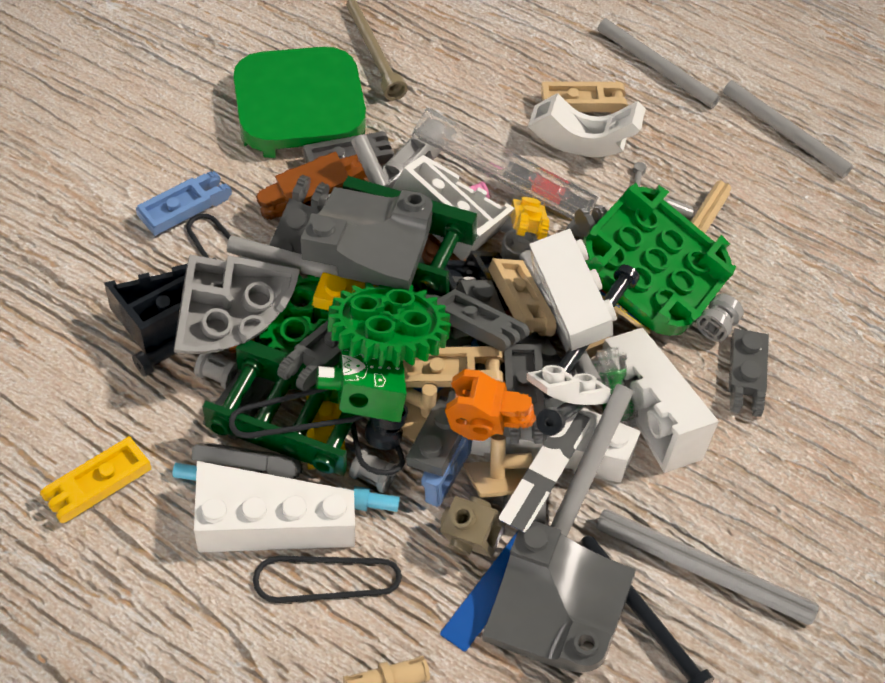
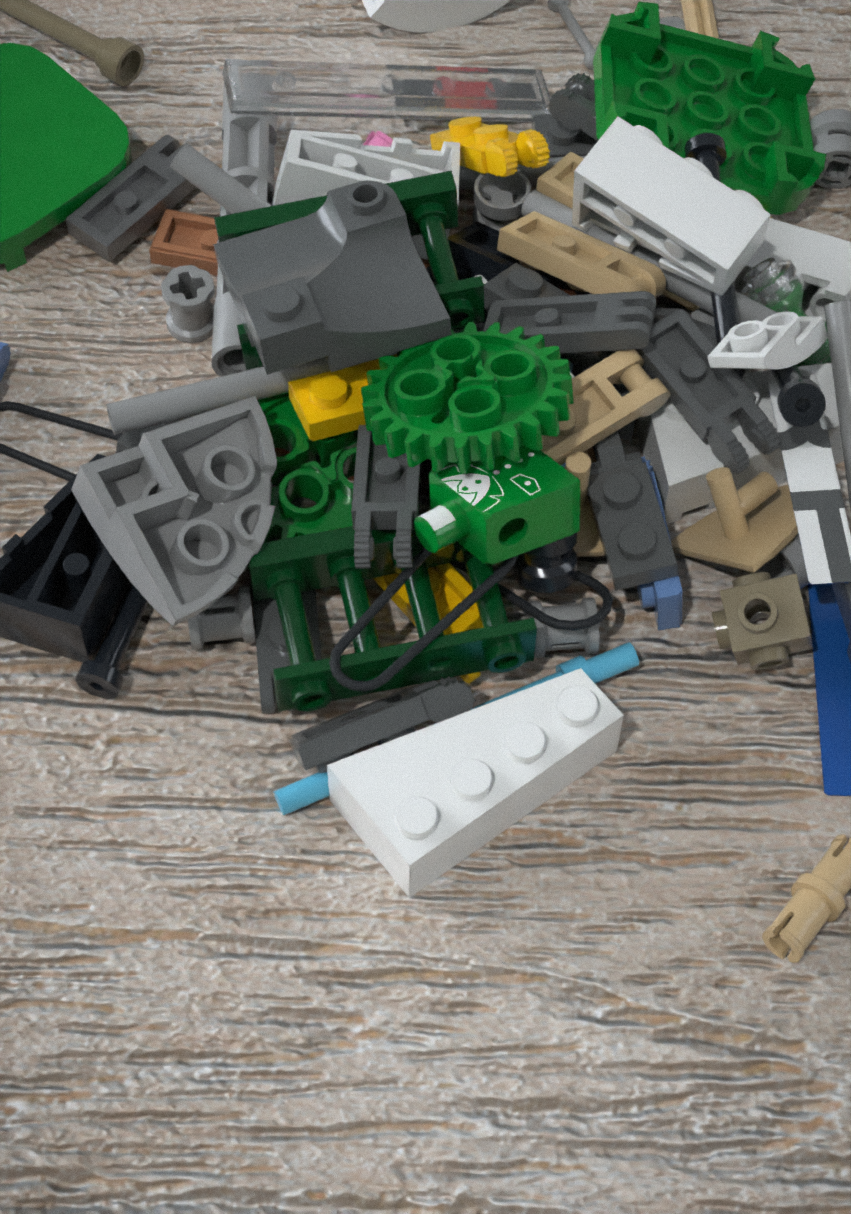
camera: 30 degrees left, 5 degrees up
(95, 479) = (181, 887): yellow hinge -> none
(262, 594) = (636, 842): black piece -> none
(297, 215) = (165, 329): dark grey hinge -> none
(324, 169) = (122, 283): dark orange hinge -> none
(486, 407) = (687, 436): orange hinge -> none

